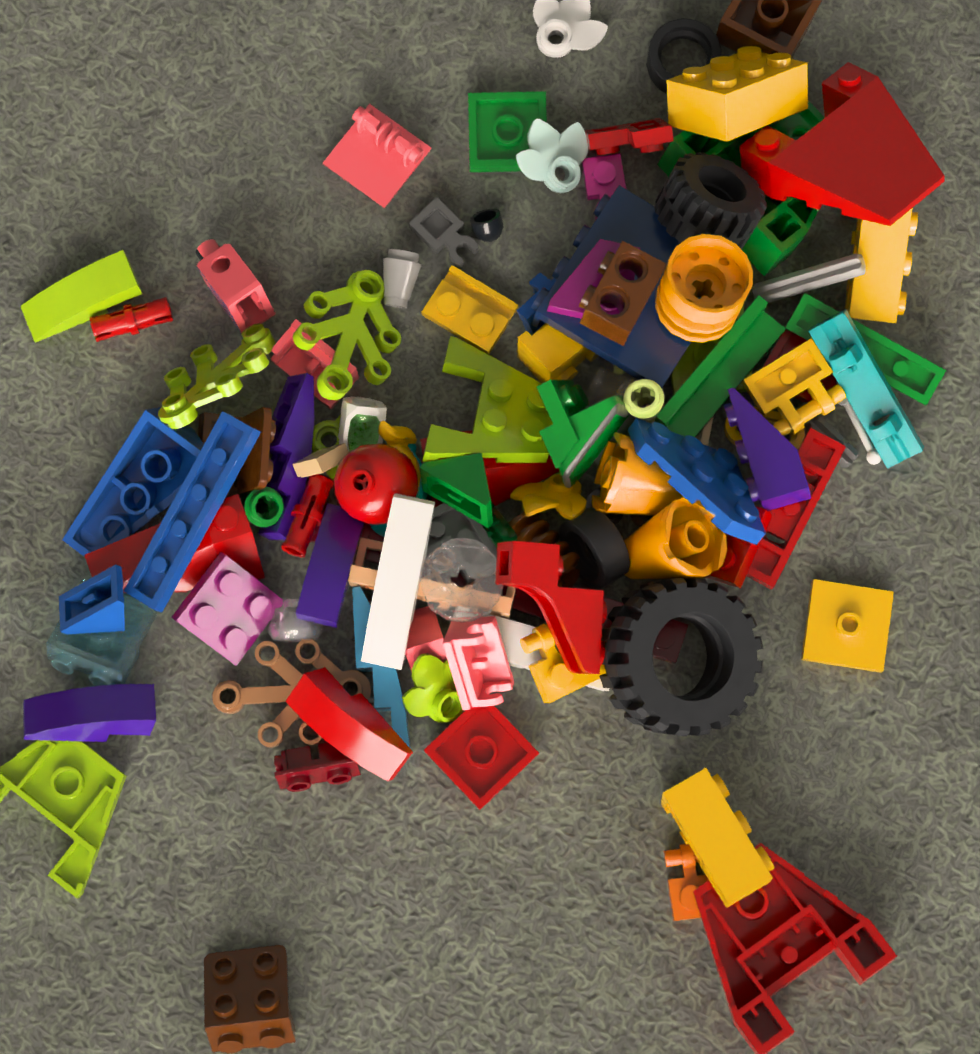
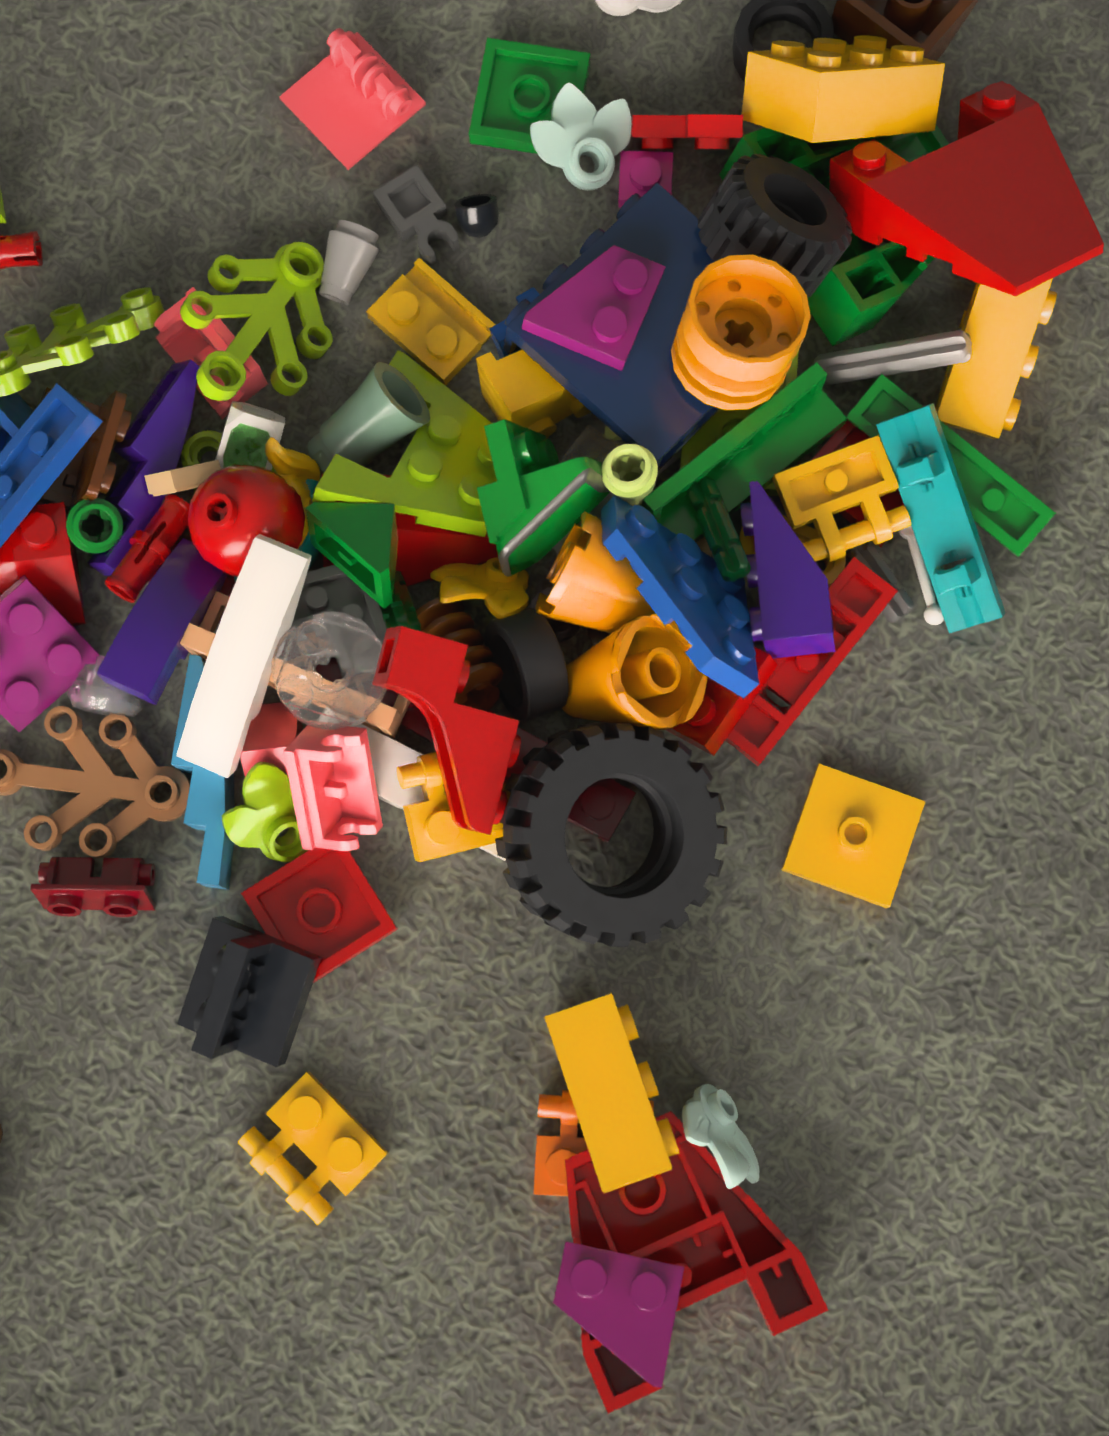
camera: 15 degrees right, 0 degrees up
(233, 284) = (116, 217): coral torso -> none
(348, 723) = (143, 837): slope -> none
(443, 819) = (247, 993): none -> black bracket
(444, 394) = (371, 419): none -> sand green plant
(518, 908) = (325, 1135): none -> yellow plate
(625, 294) = (632, 321): reddish brown brick -> none
(713, 427) = (719, 530): none -> dark green axle
(755, 979) = (622, 1304): none -> magenta wing
(789, 845) = (710, 1121): none -> light aqua plate

